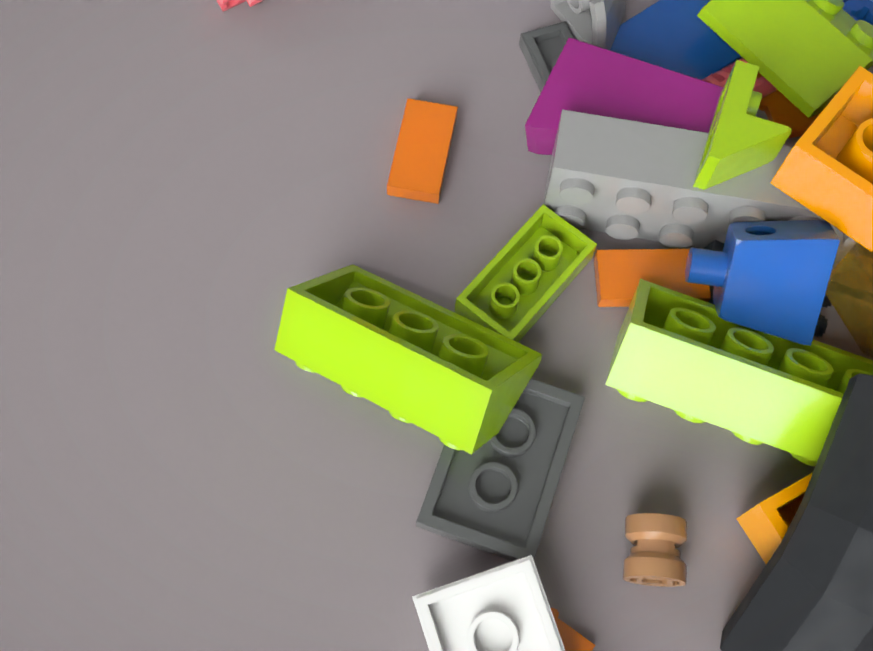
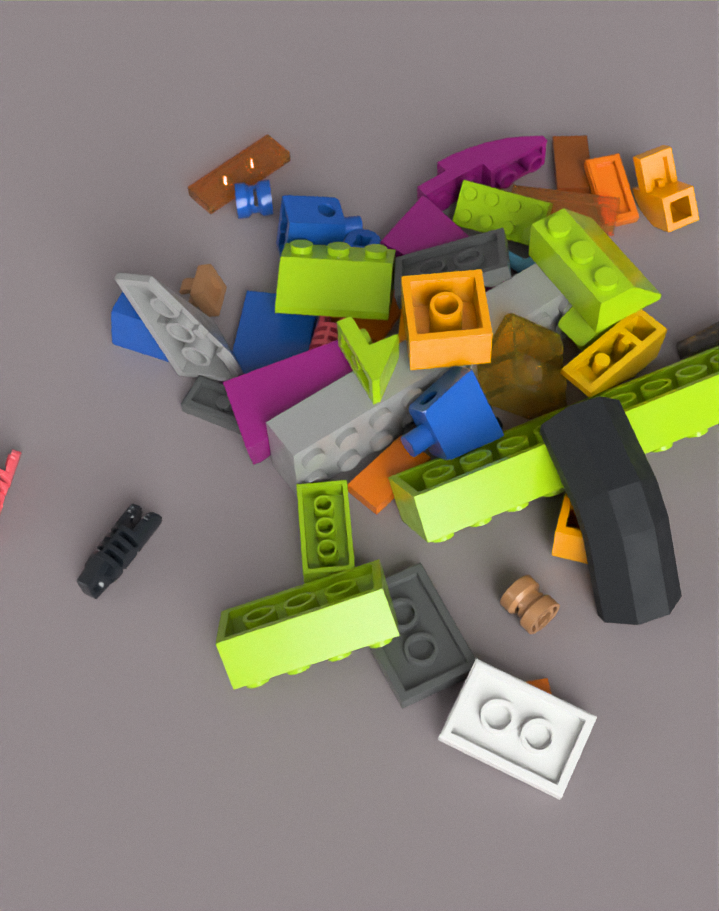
camera: 40 degrees left, 10 degrees down
(320, 120) = (117, 550): none -> black hinge
(422, 151) = (193, 516): orange tile -> none

